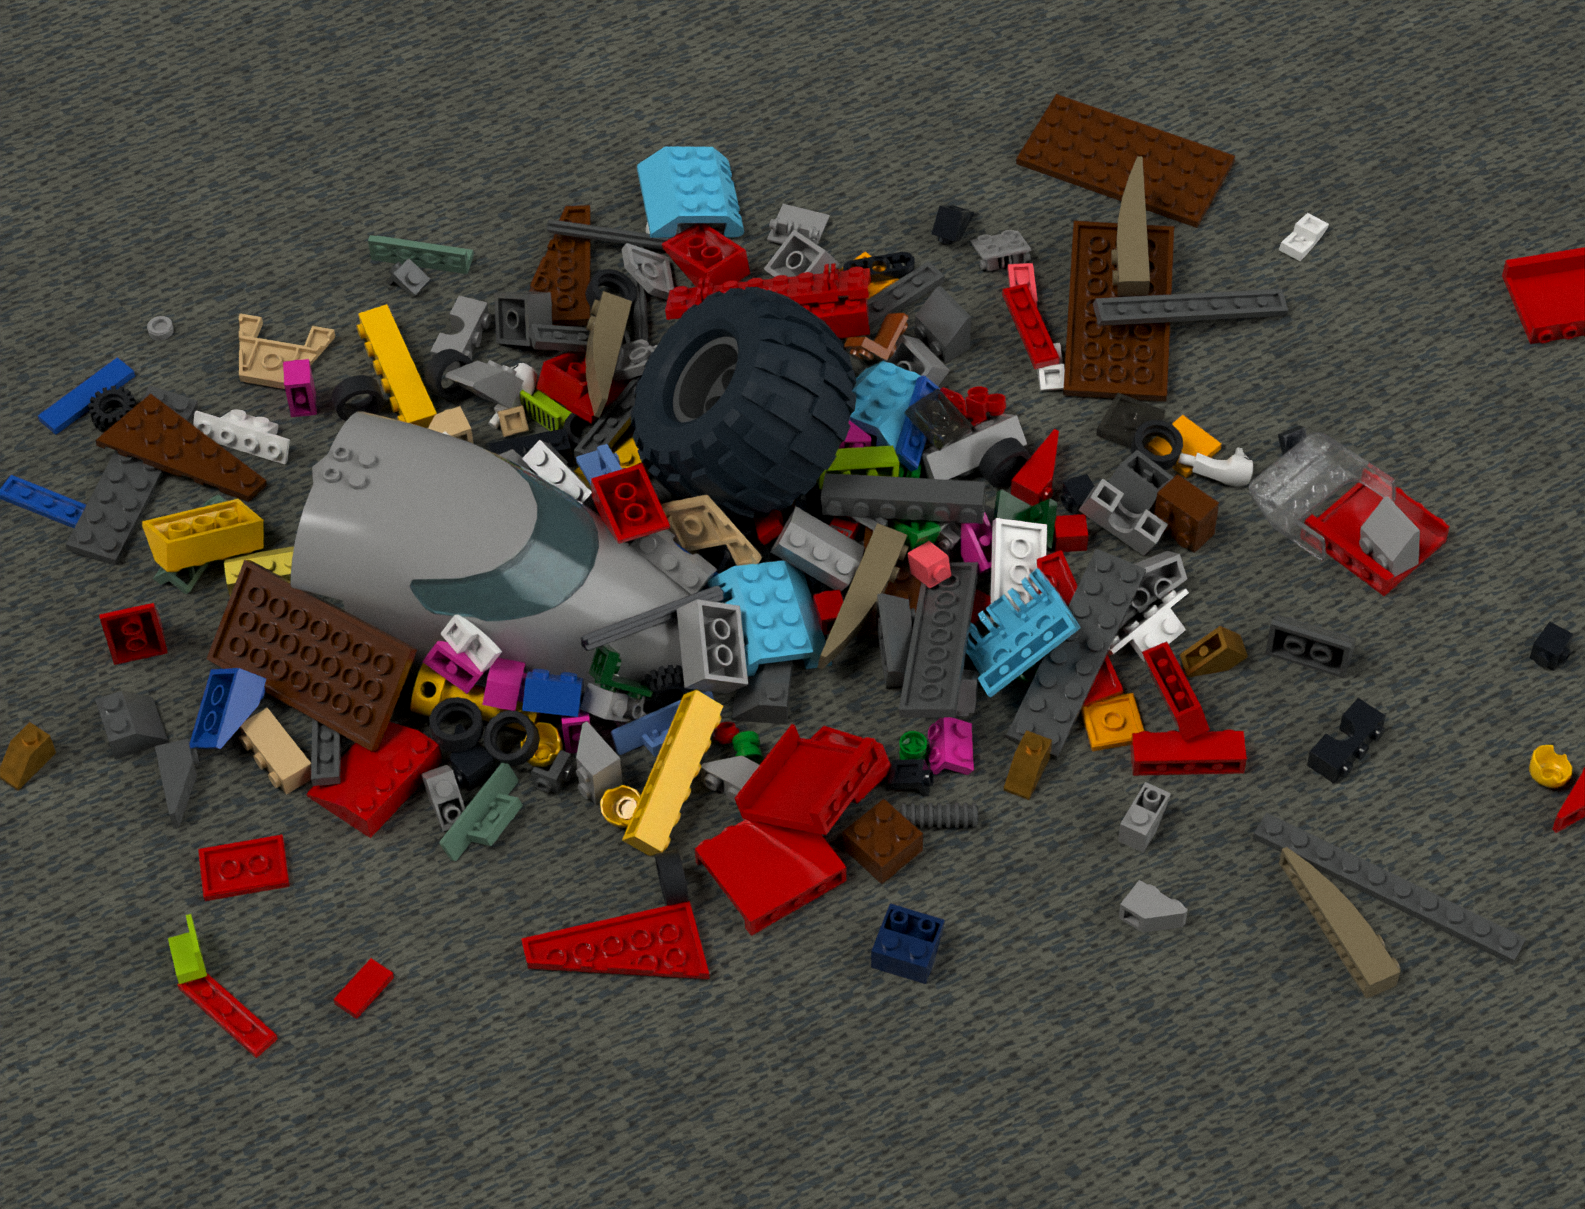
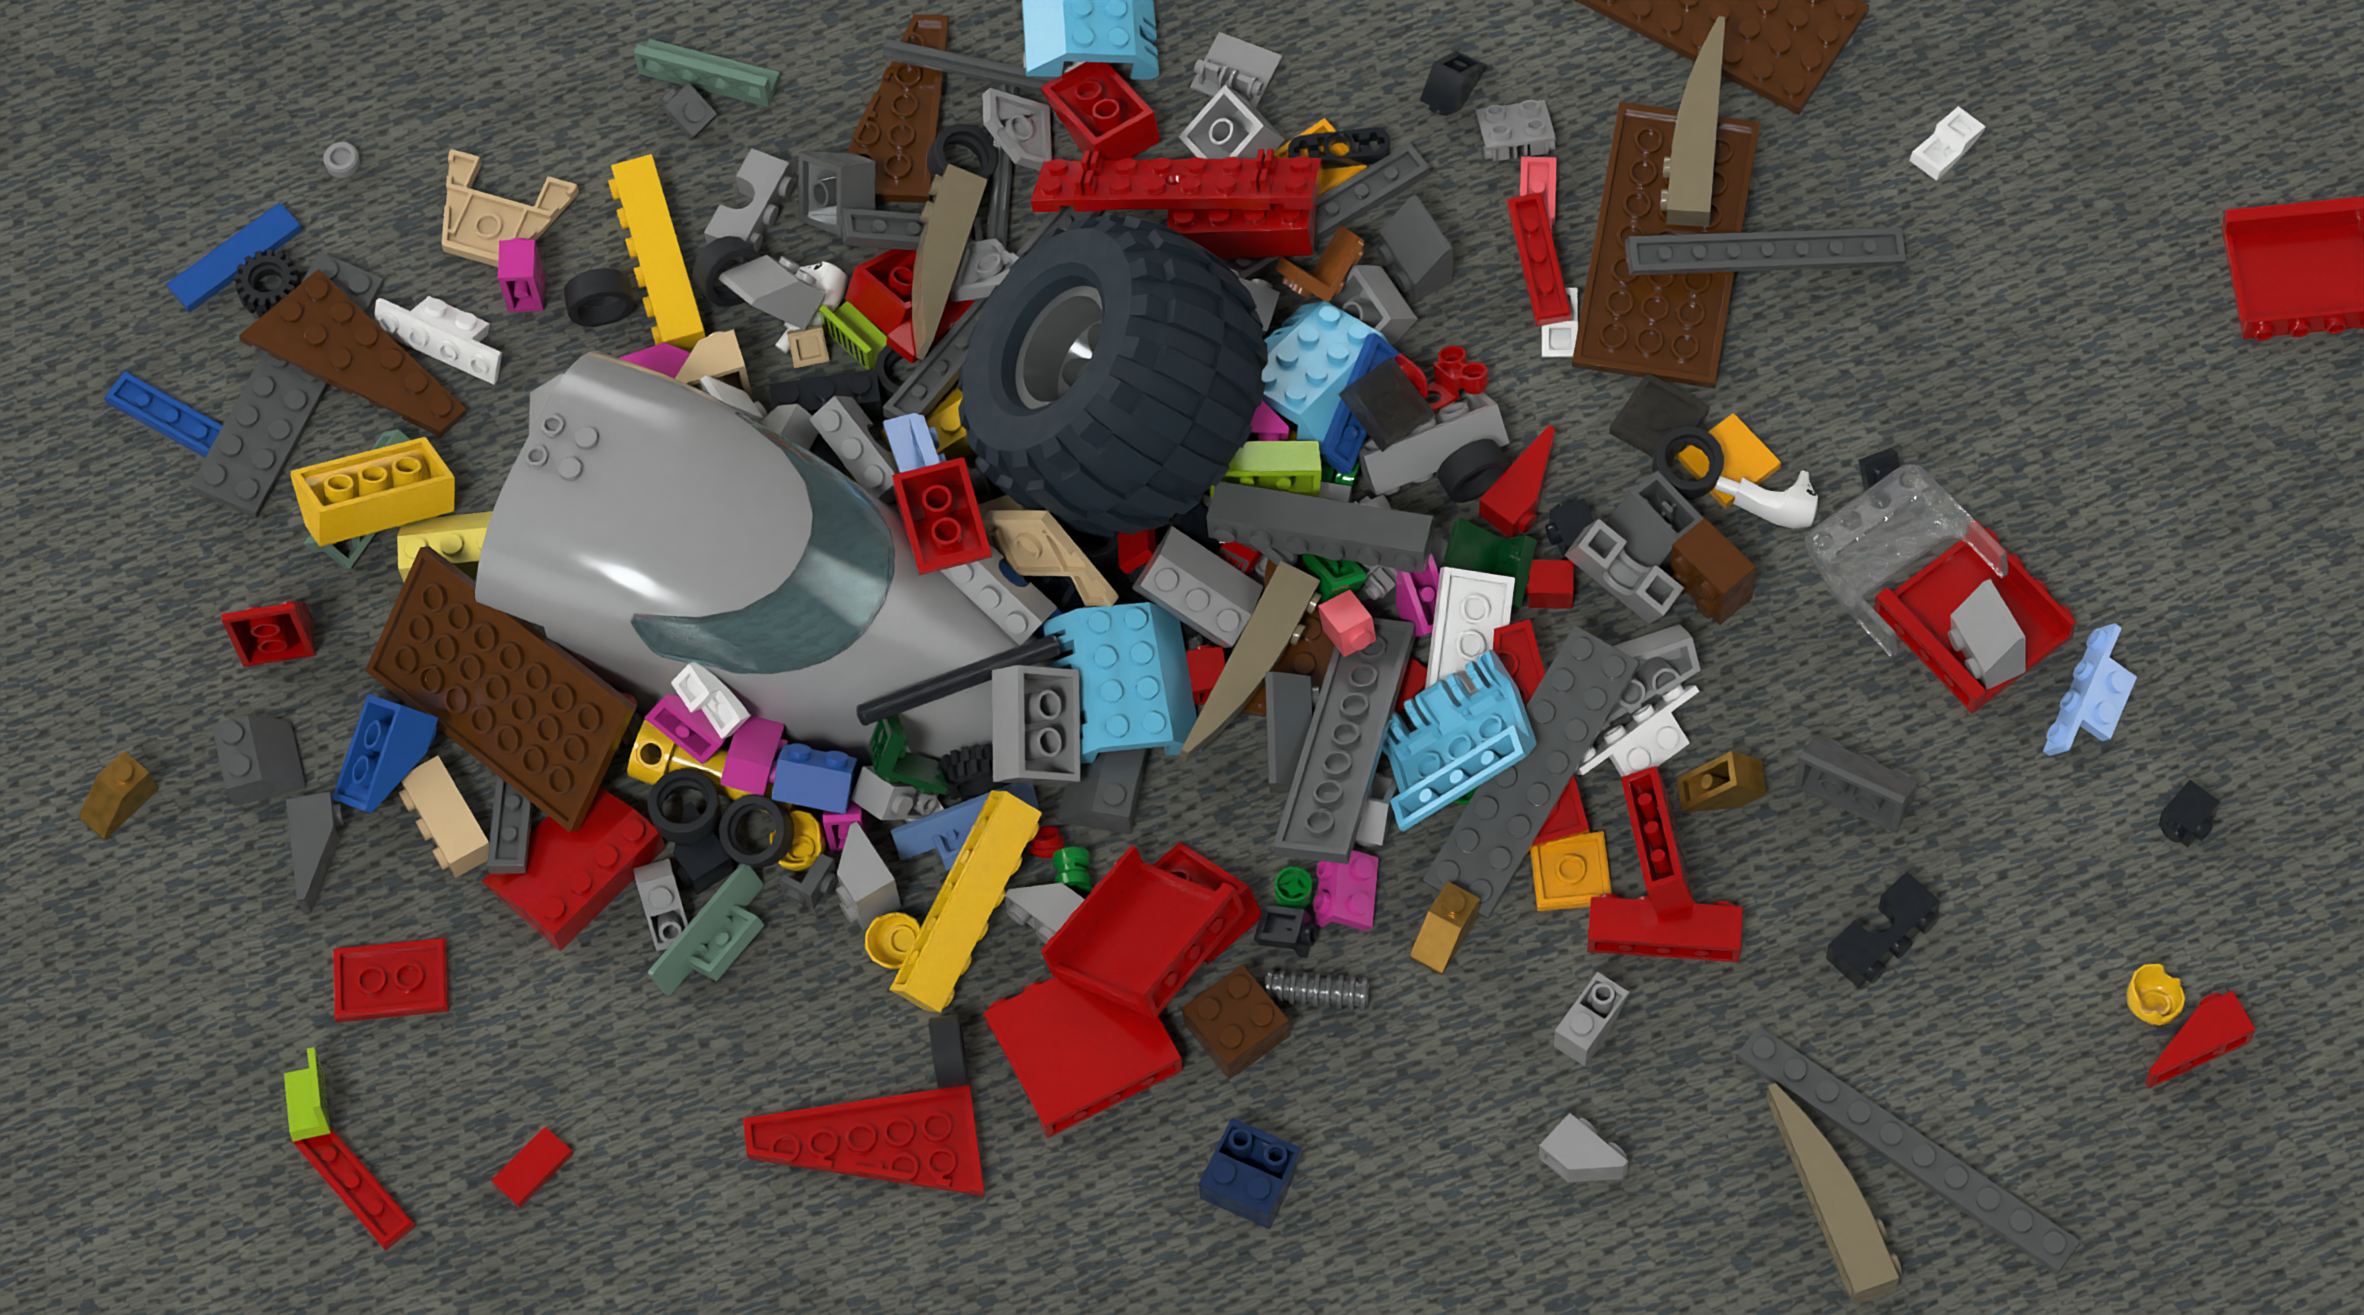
camera: 10 degrees right, 10 degrees up
(1470, 574) = (2095, 694): none -> light blue bracket

